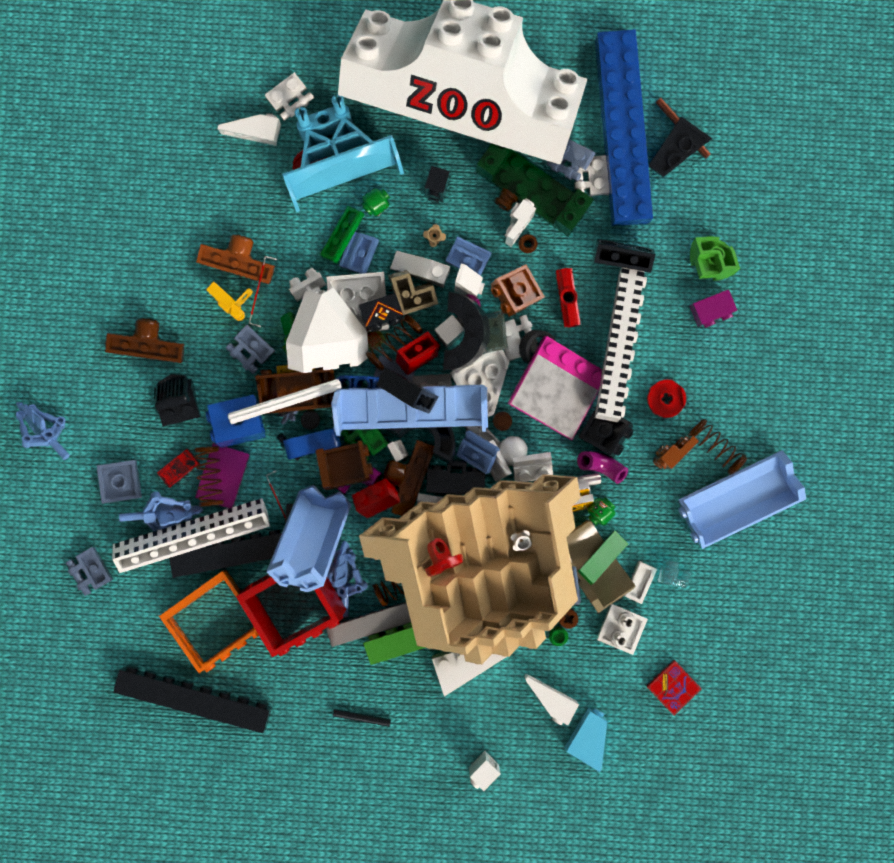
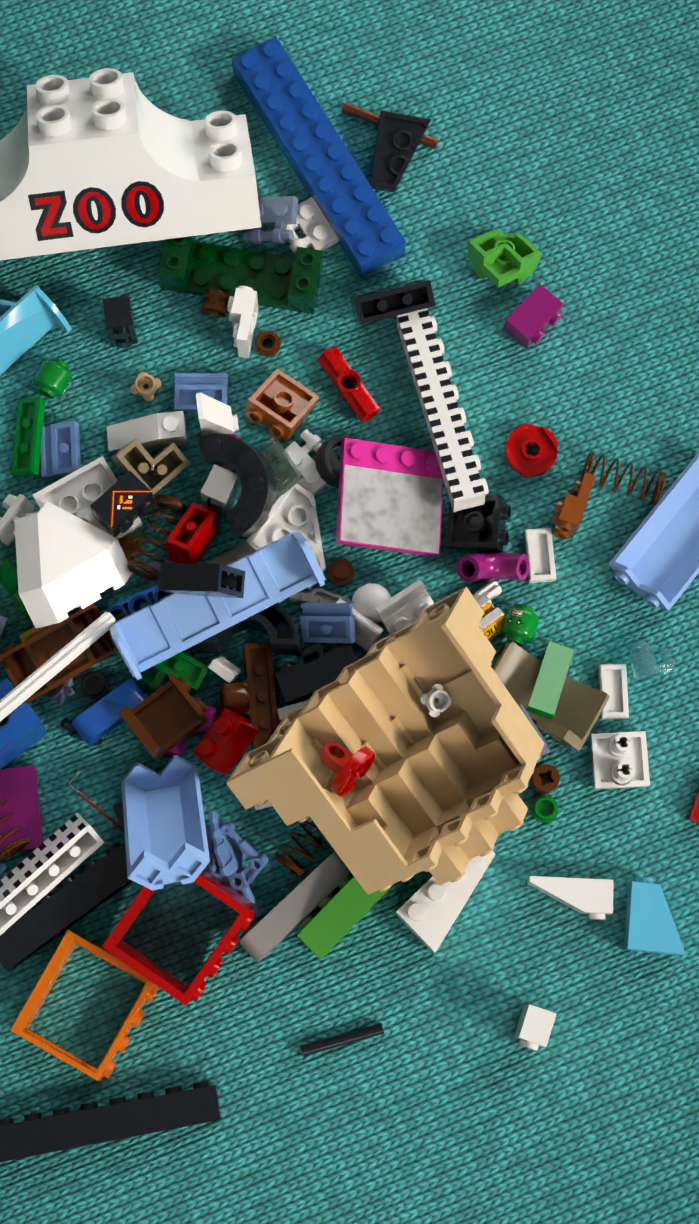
camera: 30 degrees left, 10 degrees down
(637, 470) = (540, 555): none -> white tile

